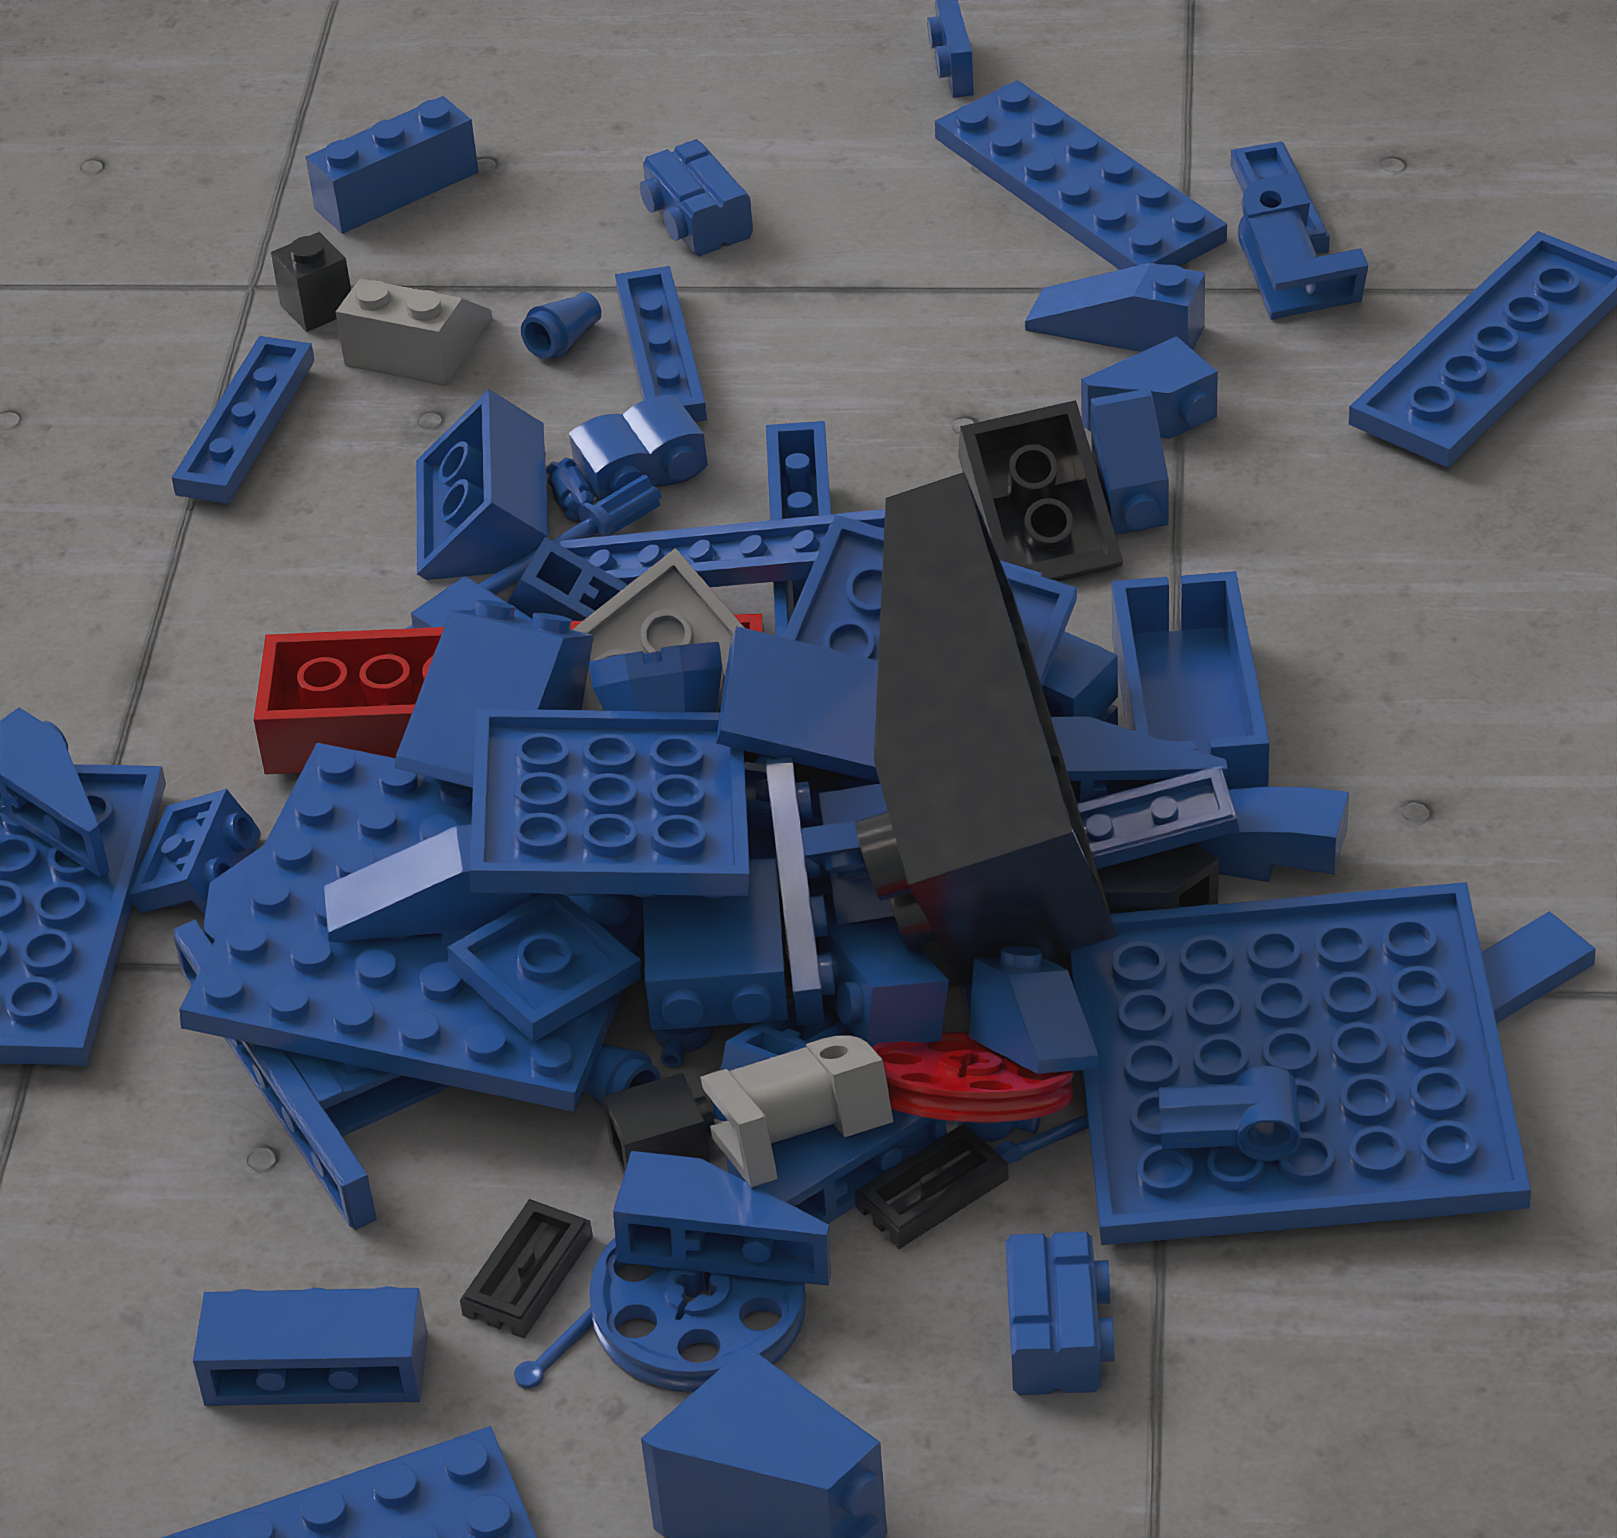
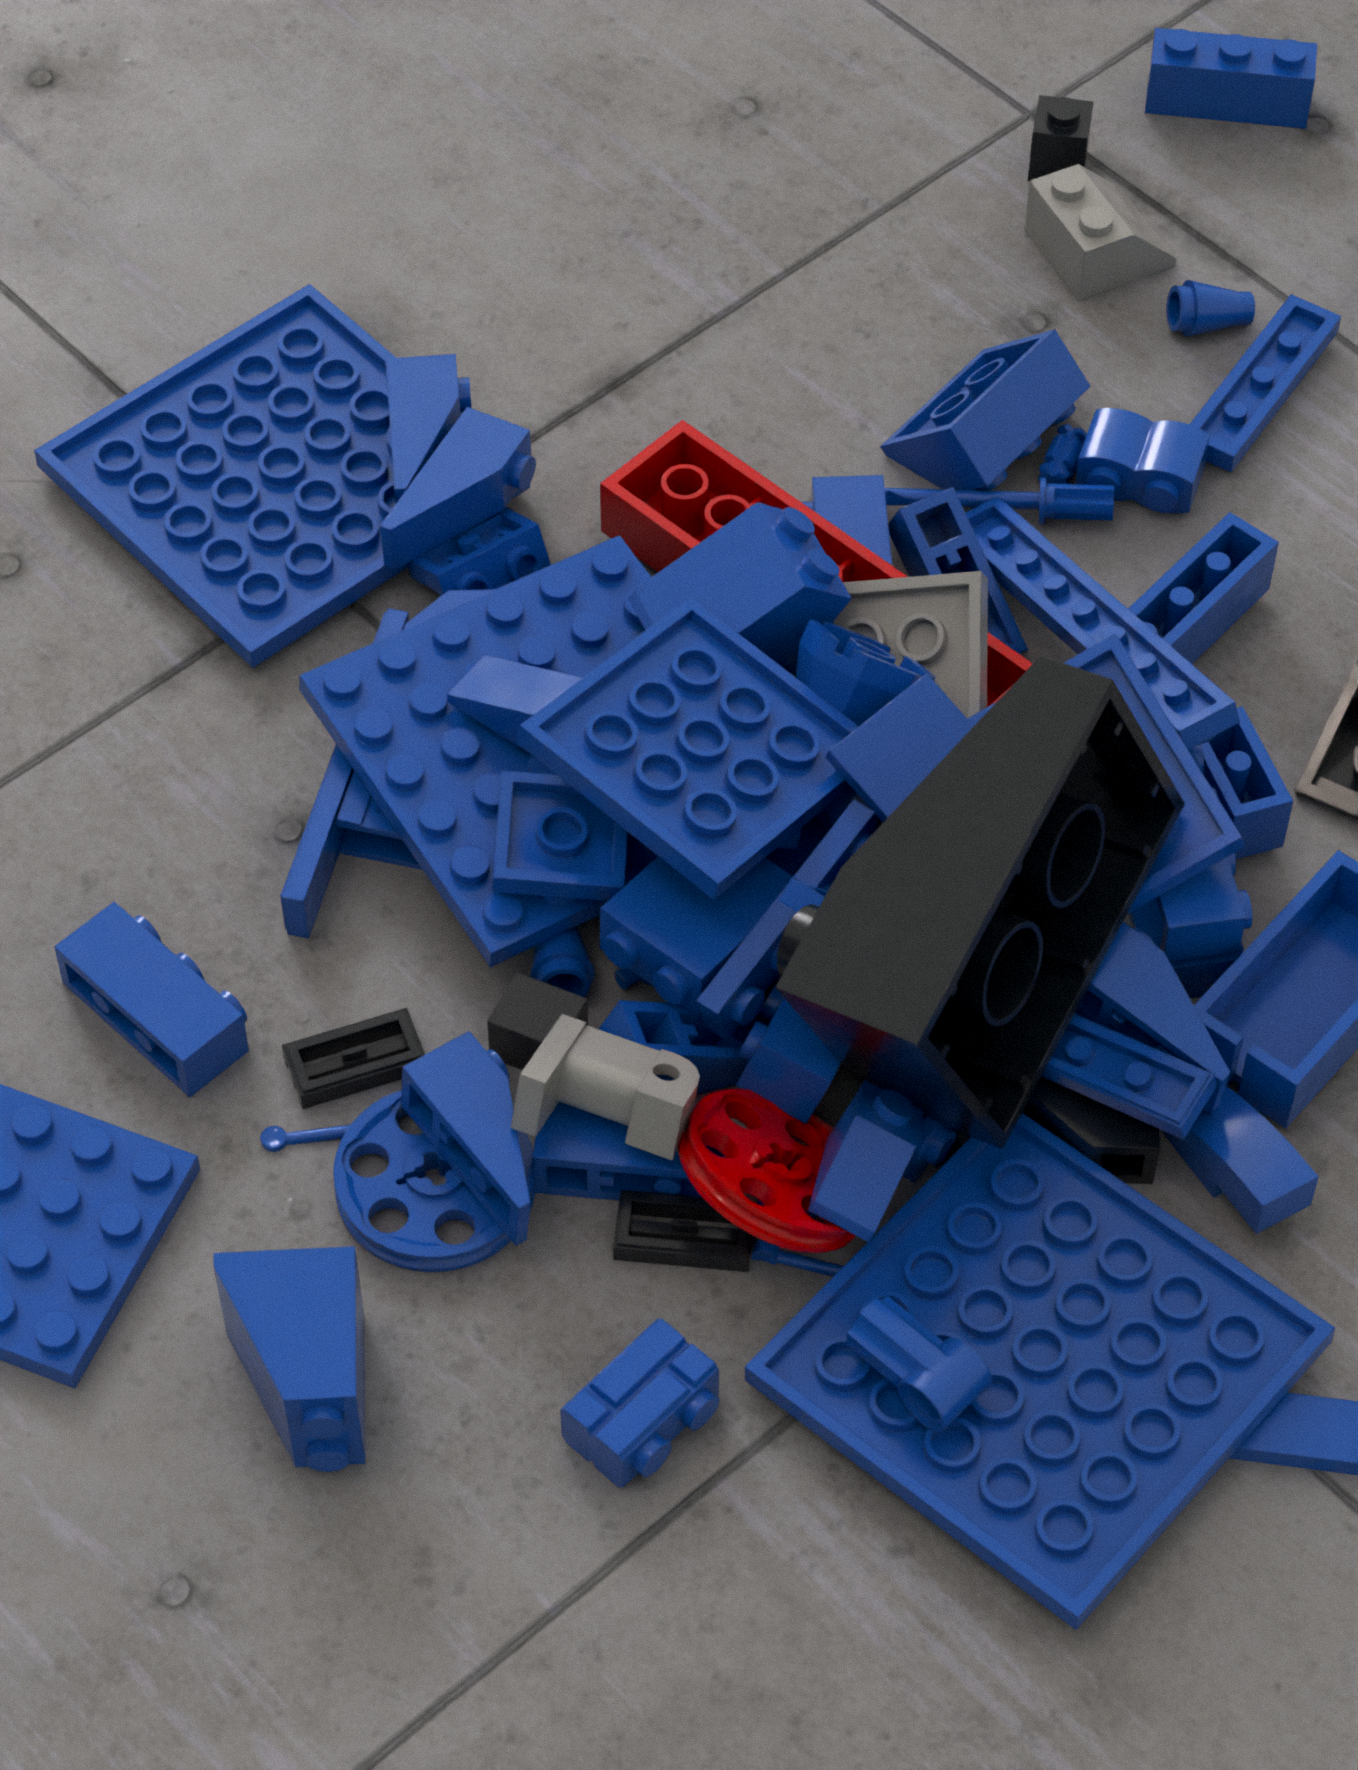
camera: 40 degrees right, 10 degrees up
(130, 798) = (459, 486): none -> blue slope
(243, 420) = (892, 225): blue plate -> none

